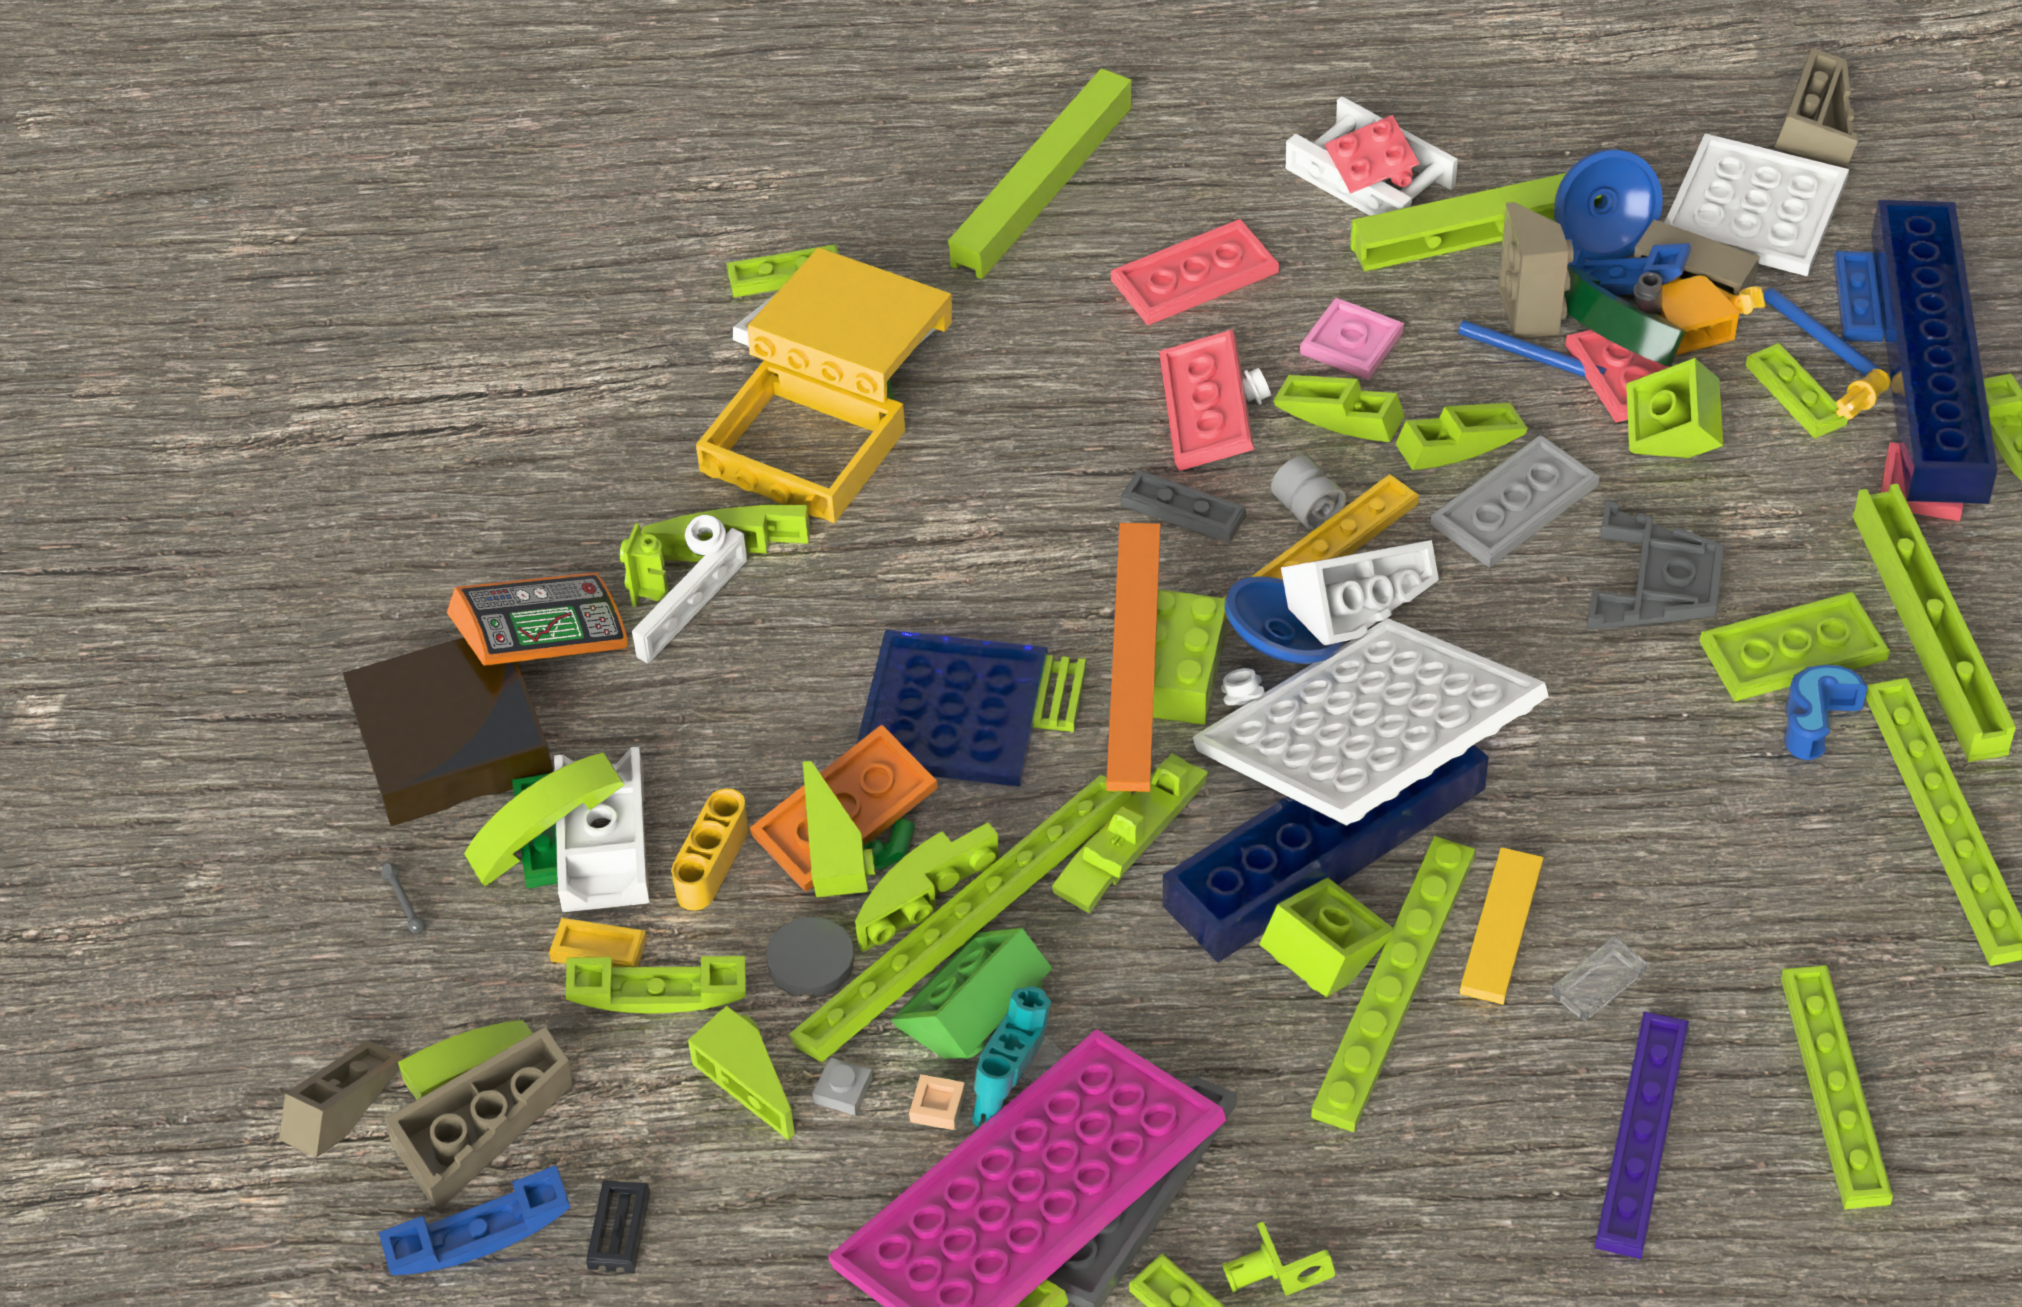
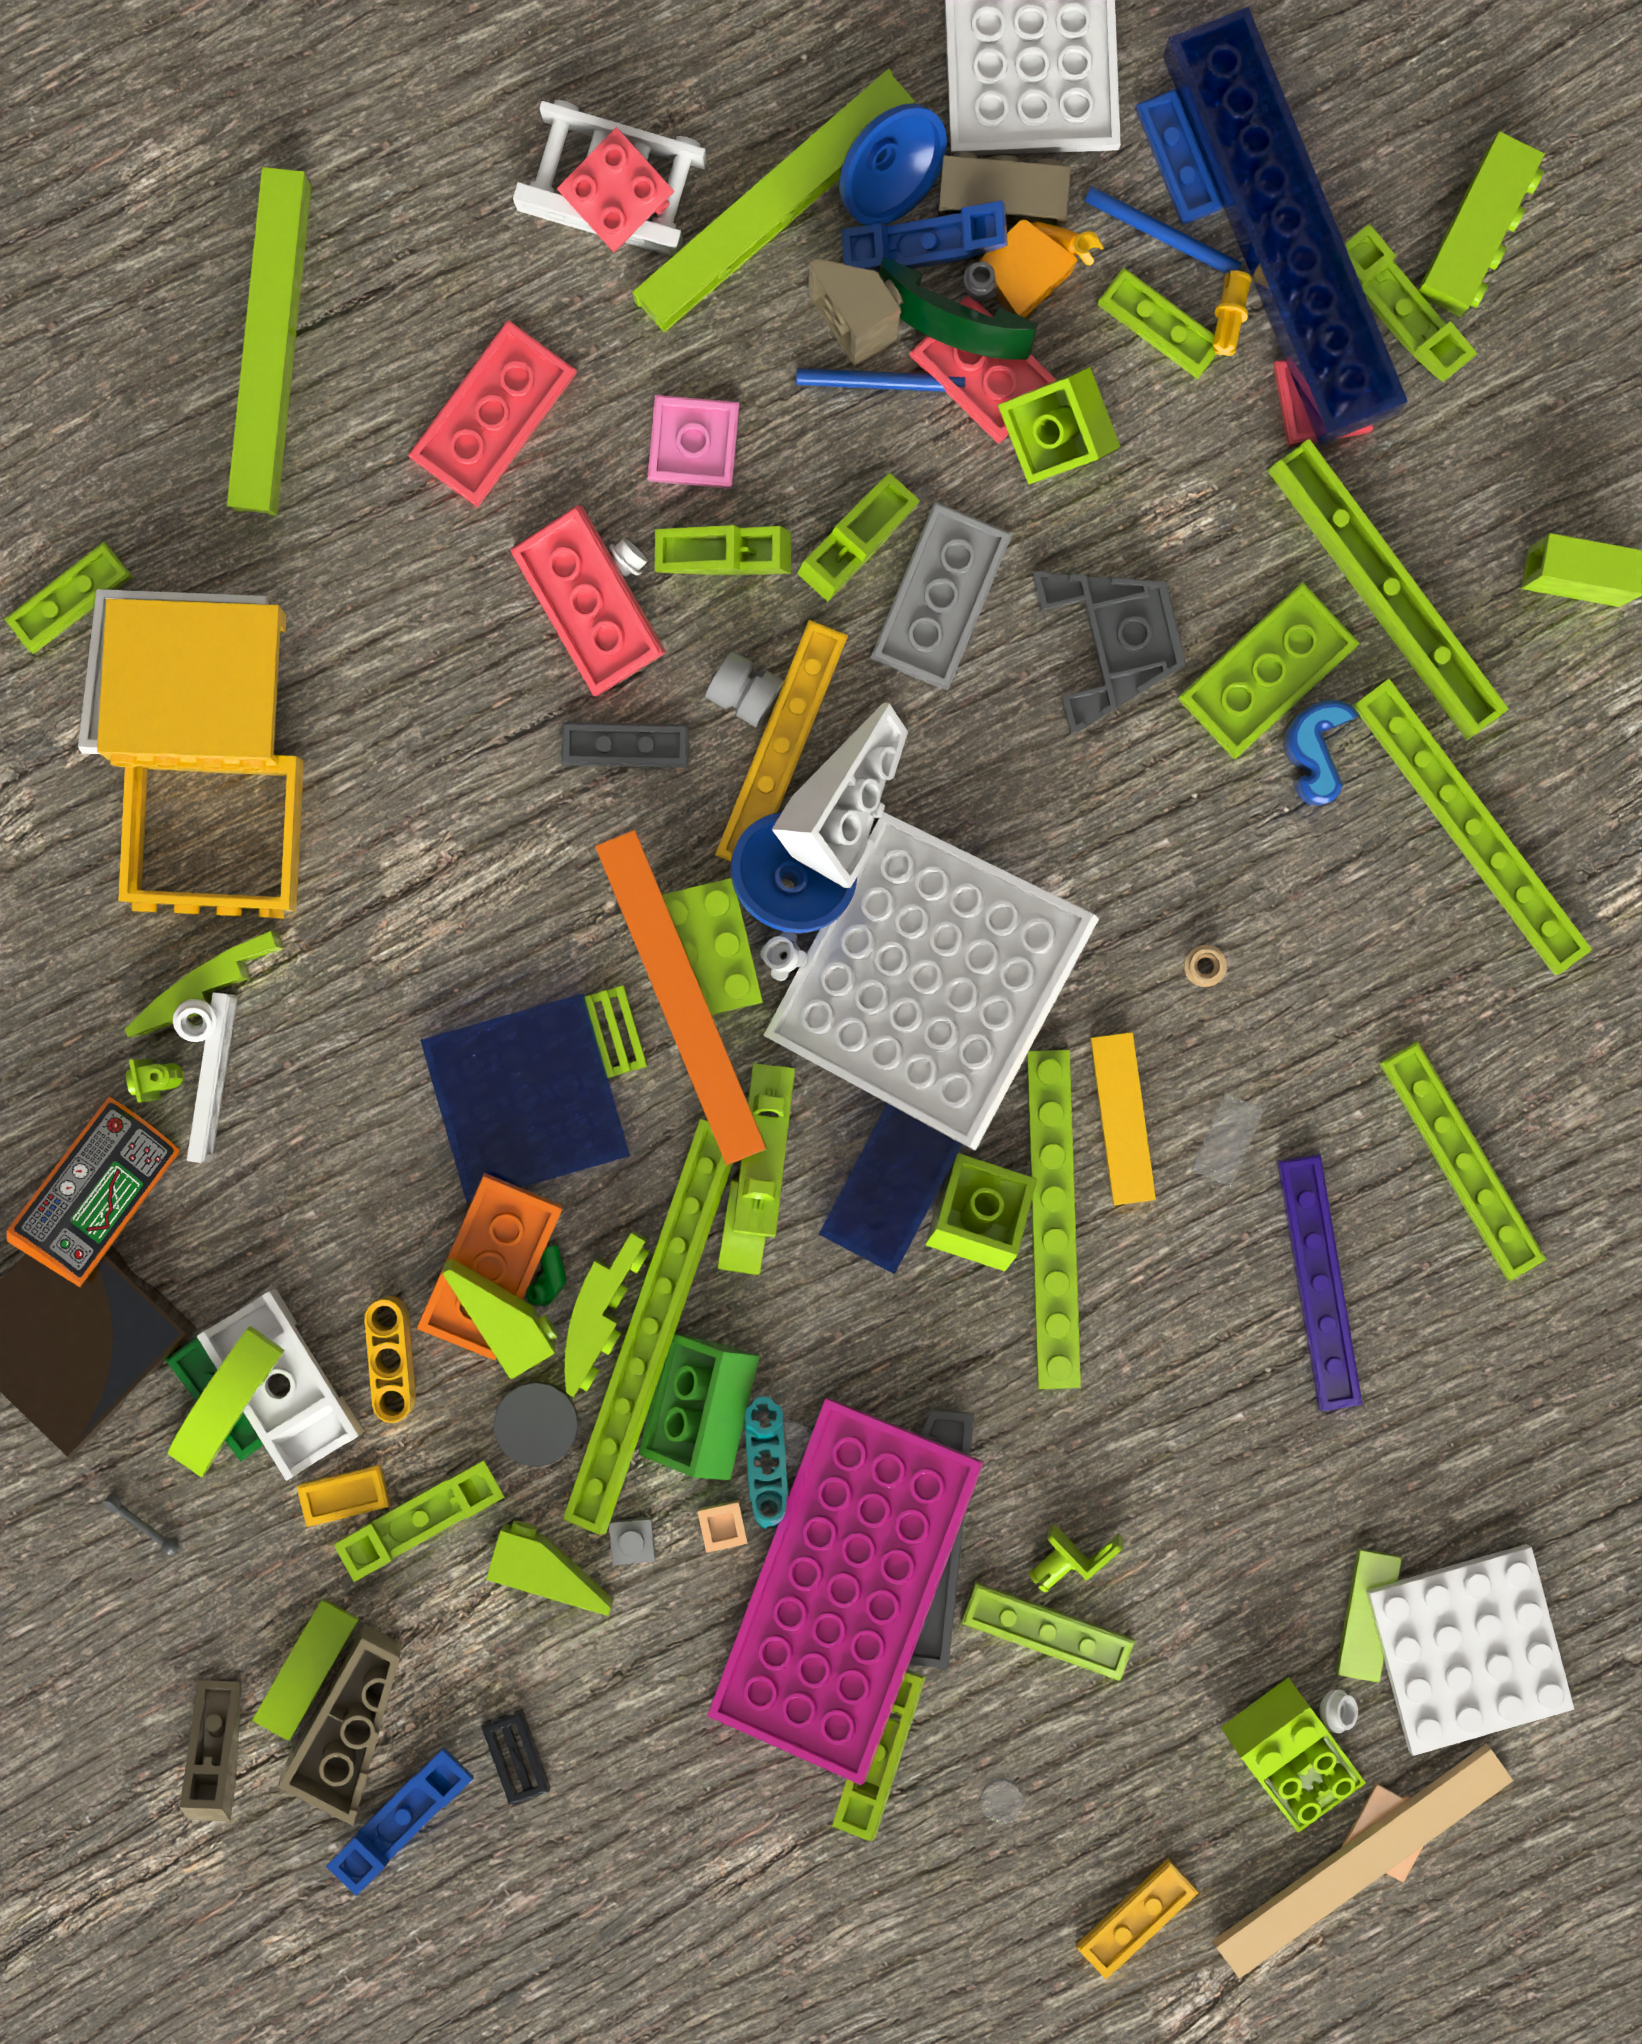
camera: 25 degrees left, 40 degrees up
(1638, 825) = (1218, 962): none -> tan plate

